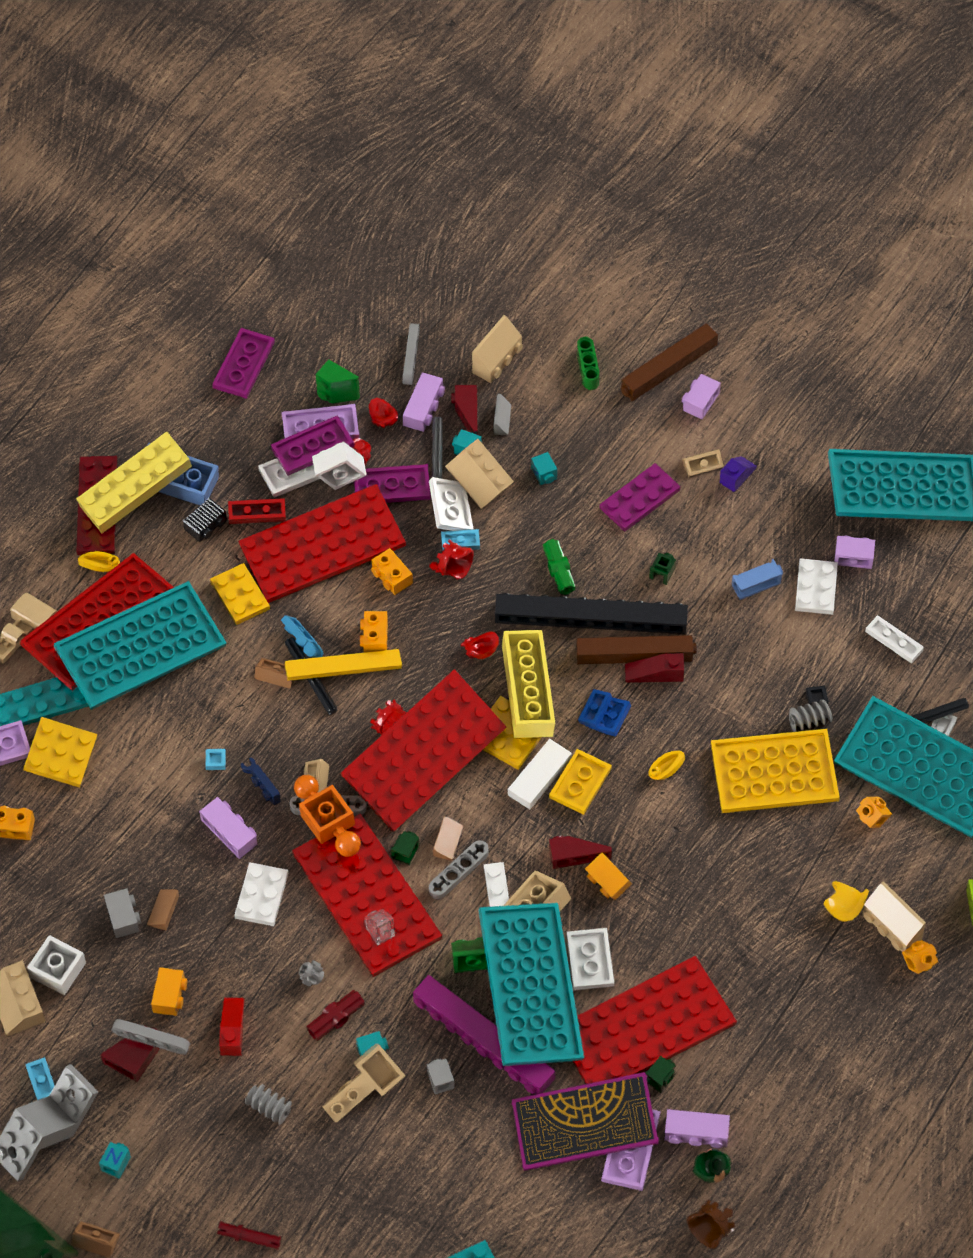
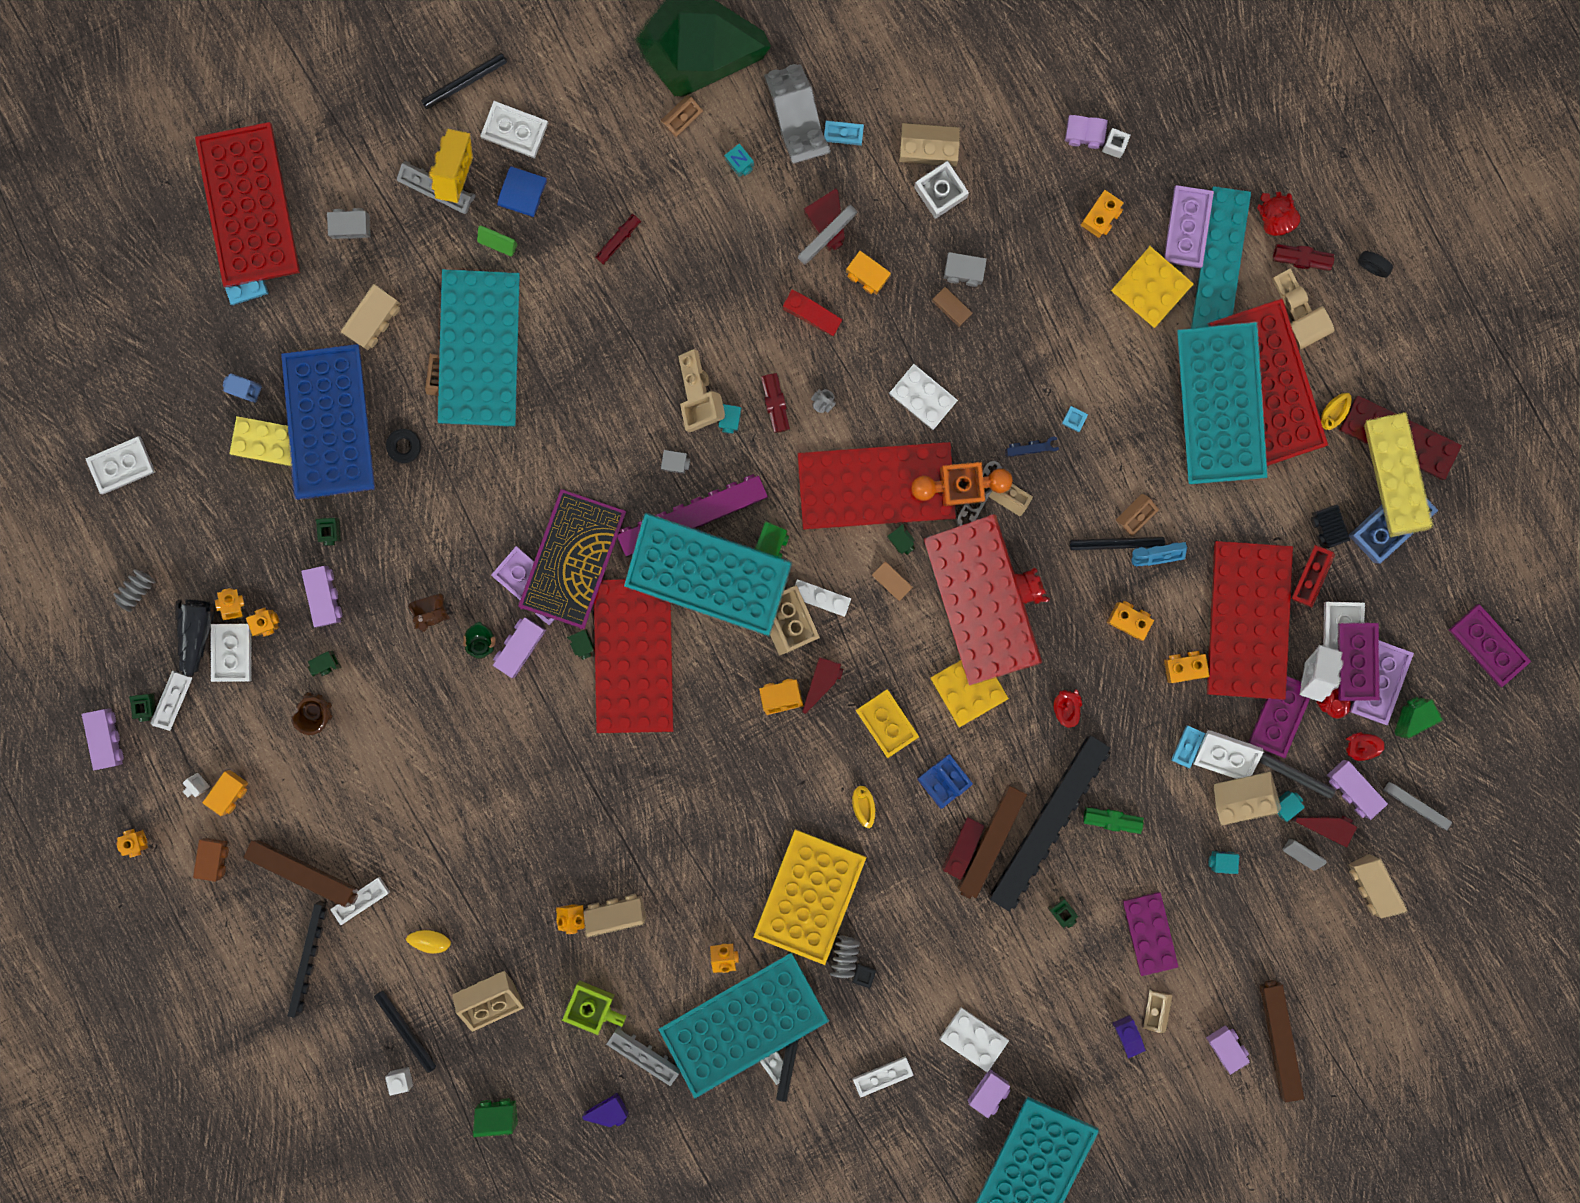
camera: 120 degrees right, 30 degrees up
(228, 827) = (1000, 398): lavender brick -> none
(240, 594) = (1236, 521): yellow plate -> none
(268, 1104) = (723, 308): light grey piece -> none
(343, 664) = (1111, 575): yellow tile -> none
(380, 926) = (833, 476): clear slope -> none
(453, 560) = (1166, 727): red hair -> none
(461, 871) = (855, 576): light grey beam -> none
(528, 684) = (1002, 726): light yellow brick -> none
(539, 774) = (913, 692): white piece -> none
(588, 356) = (1328, 969): green beam -> none
(590, 959) = (716, 642): white plate -> none
(757, 579) = (1006, 990): medium blue window -> none
(846, 901) = (650, 885): yellow piece -> none

